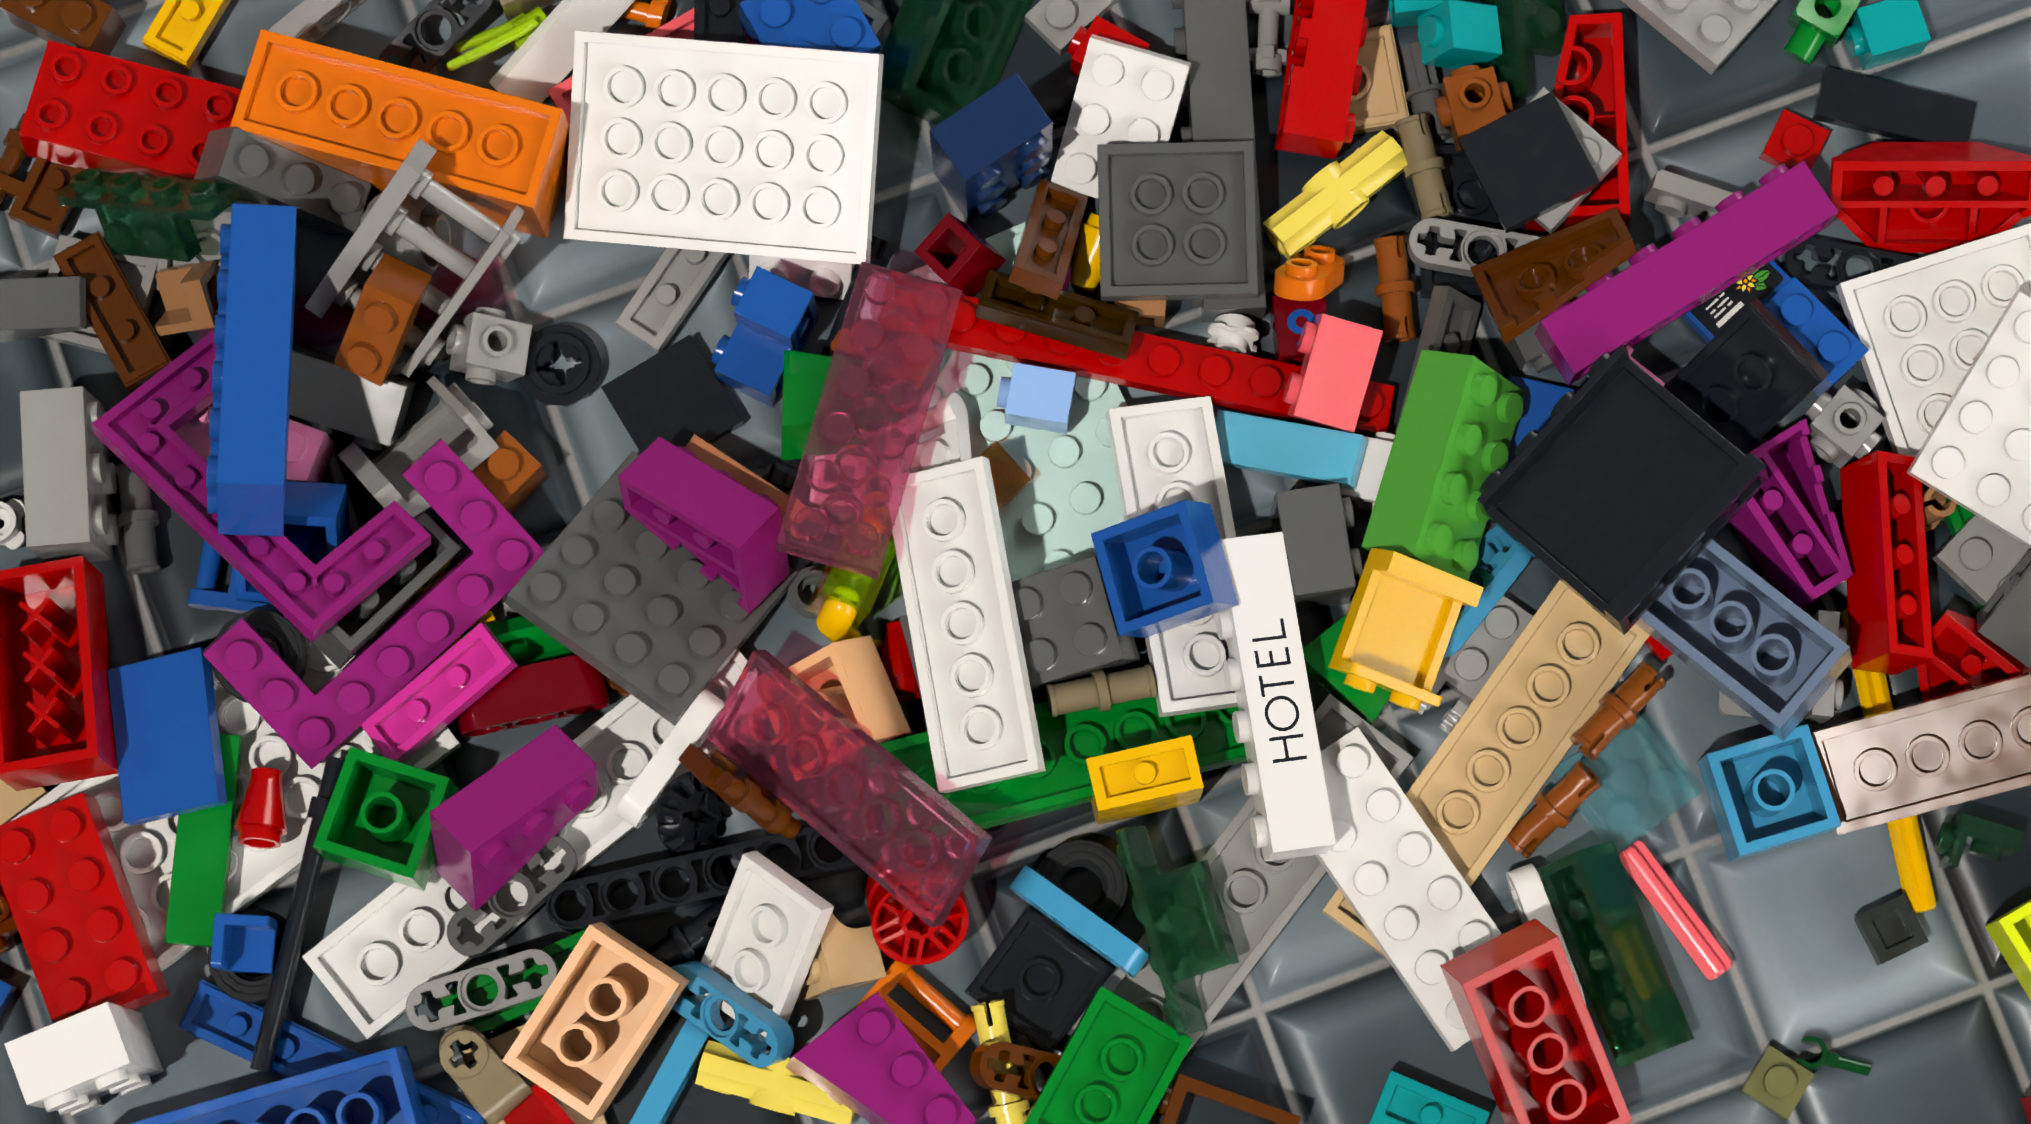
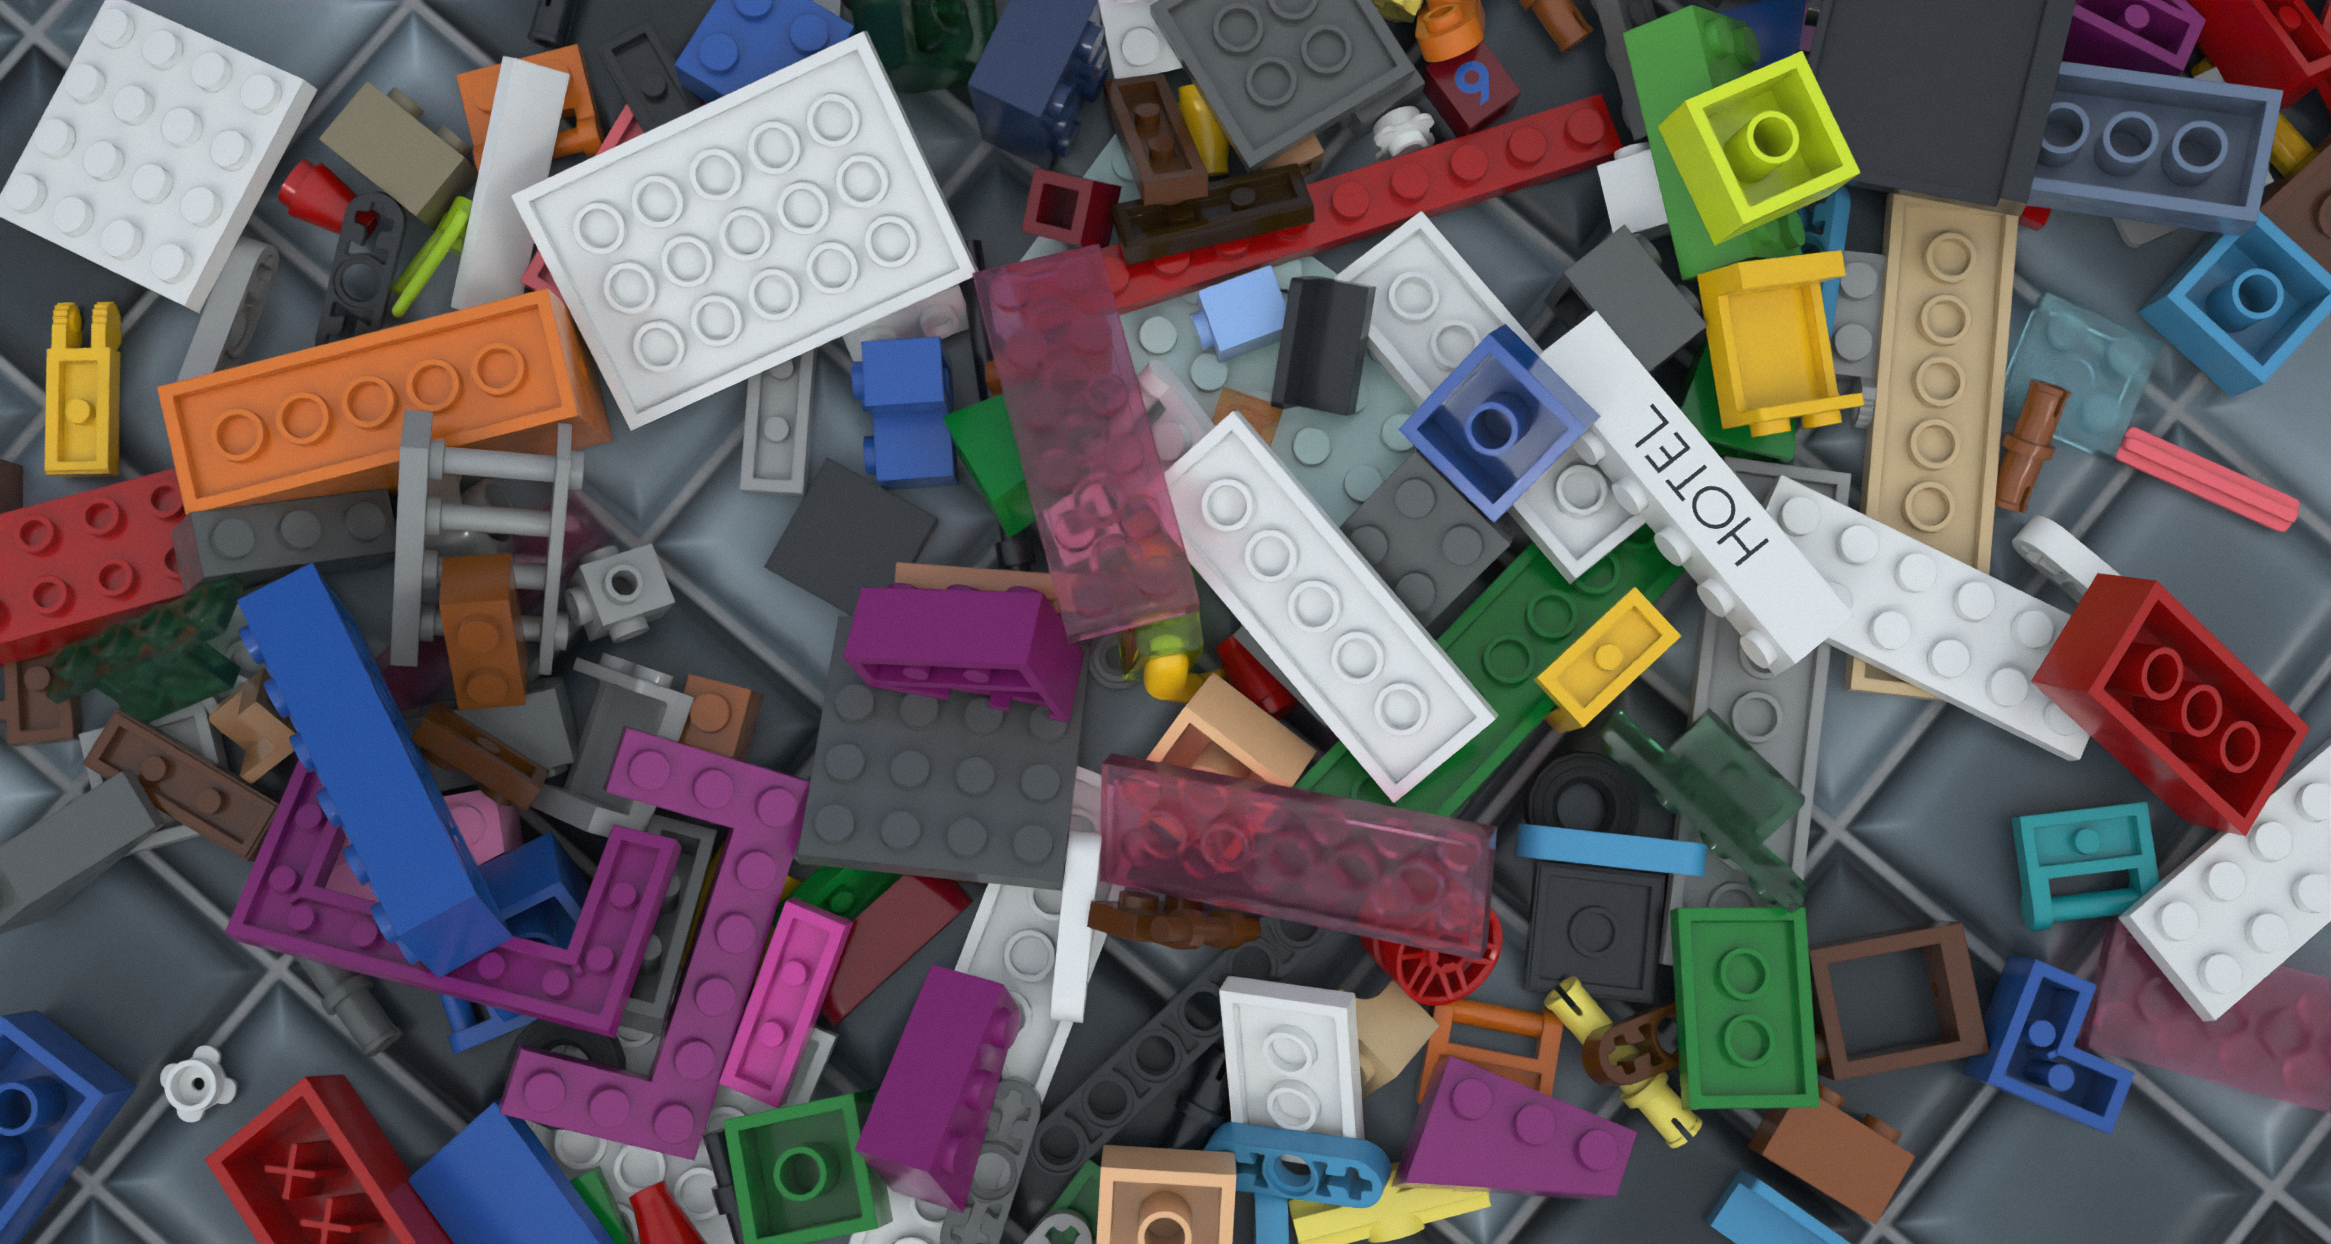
camera: 30 degrees left, 5 degrees up
(66, 476) = (236, 1000): light grey brick -> none
(338, 423) = (501, 770): none -> reddish brown plate
(575, 347) = (708, 539): black gear -> none
(676, 830) = (1127, 998): black gear -> none
(1080, 449) = (1323, 345): none -> black panel
(1101, 690) = (1495, 592): dark tan pin -> none
(1290, 449) = (1539, 219): medium azure tile -> none
(1332, 372) = (1542, 110): coral brick -> none
(1450, 479) = (1758, 148): none -> neon yellow brick
(1615, 953) = (2160, 538): clear green brick -> none
(1617, 711) = (2037, 303): dark orange pin -> none

